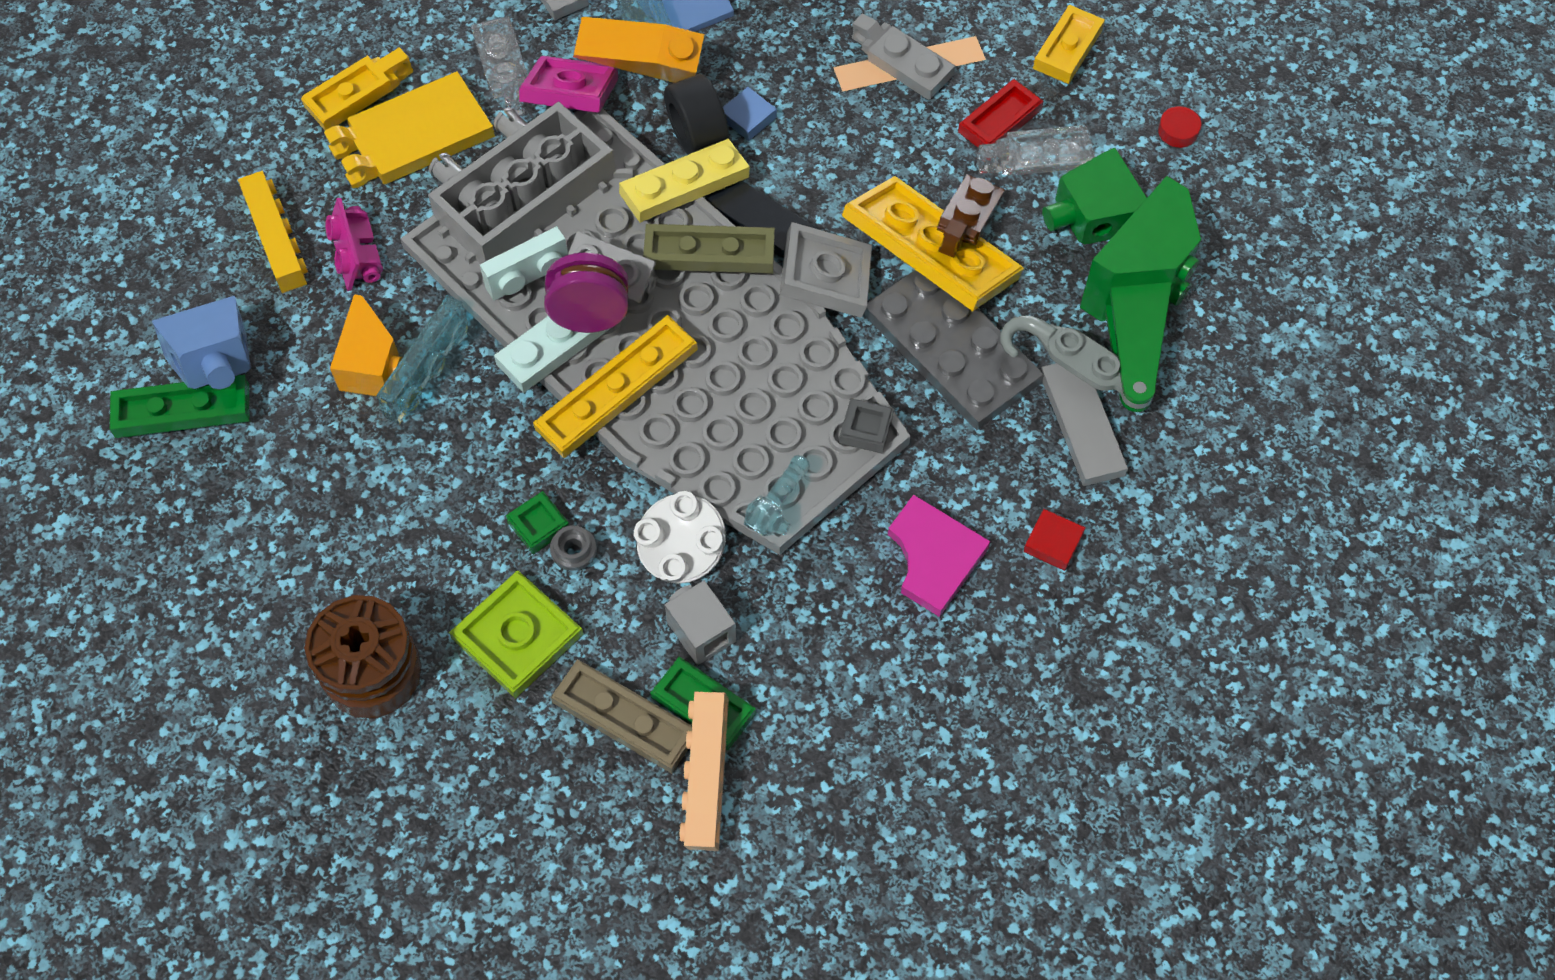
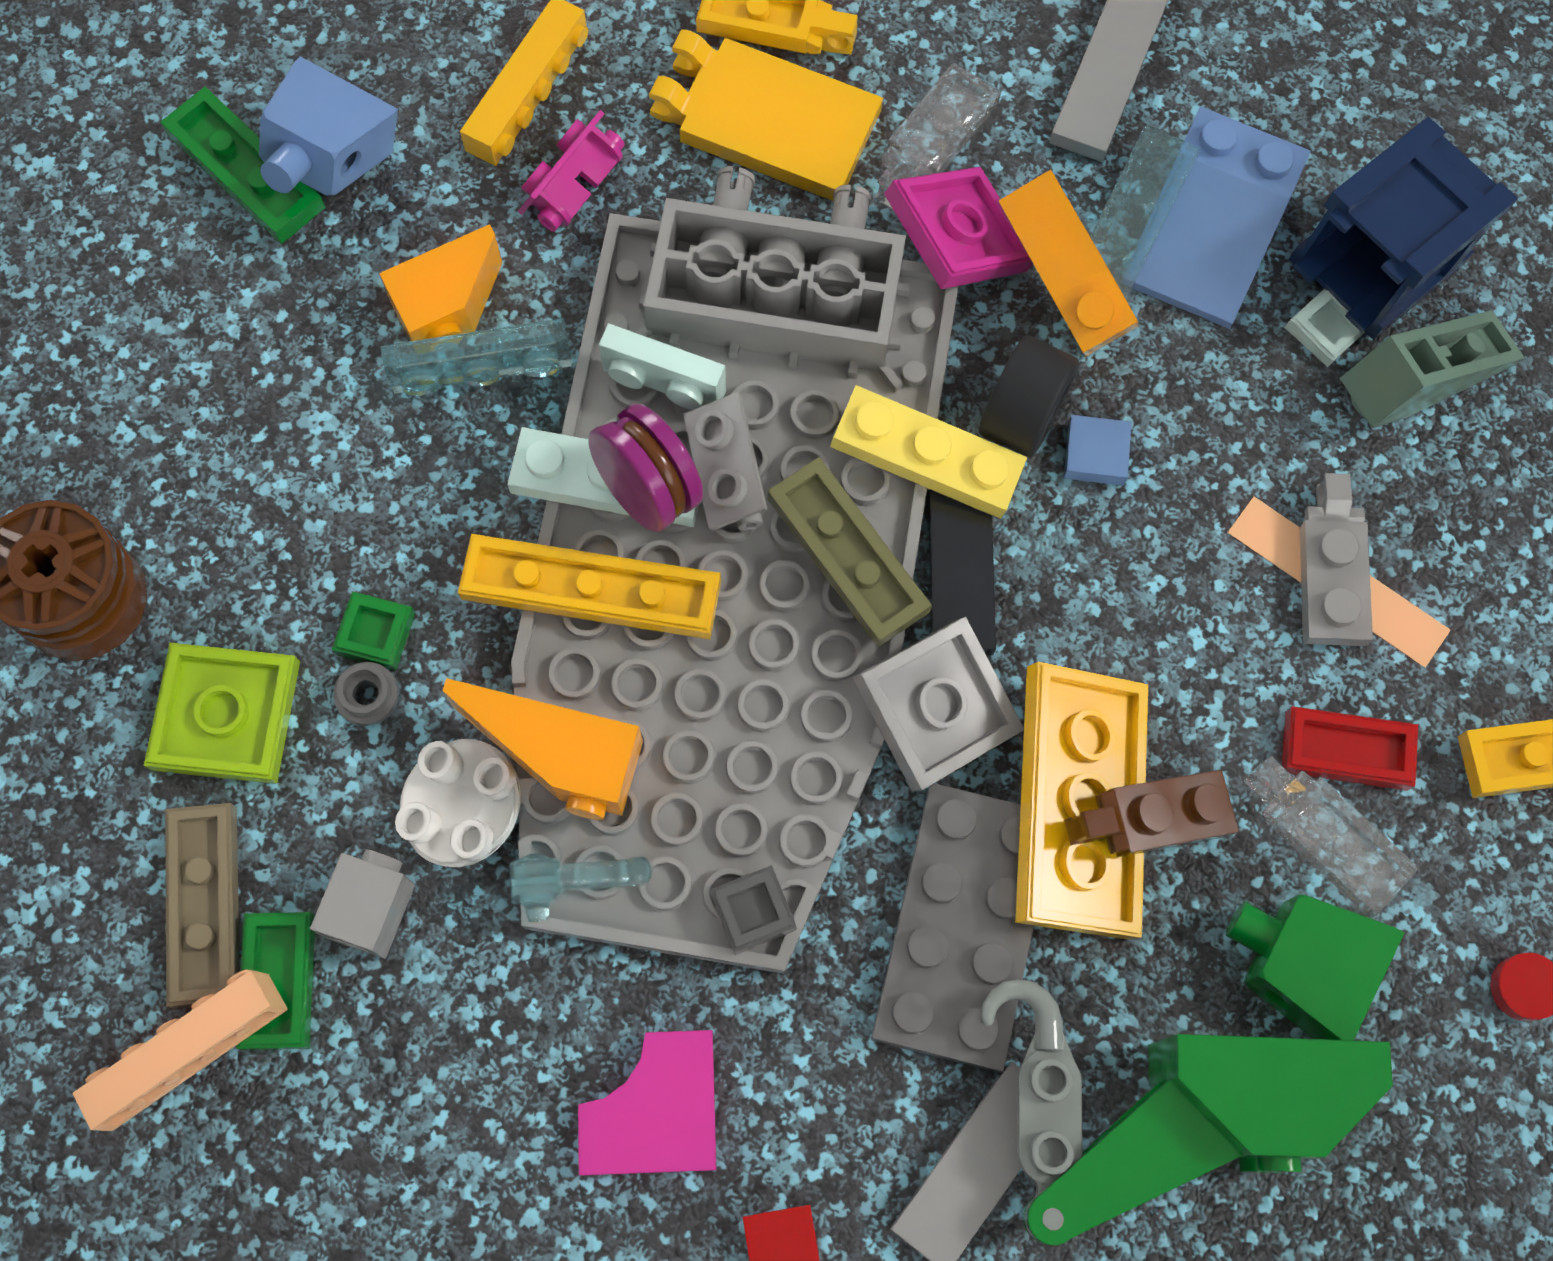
camera: 50 degrees right, 10 degrees up
(694, 457) = (567, 751): none -> light orange slope

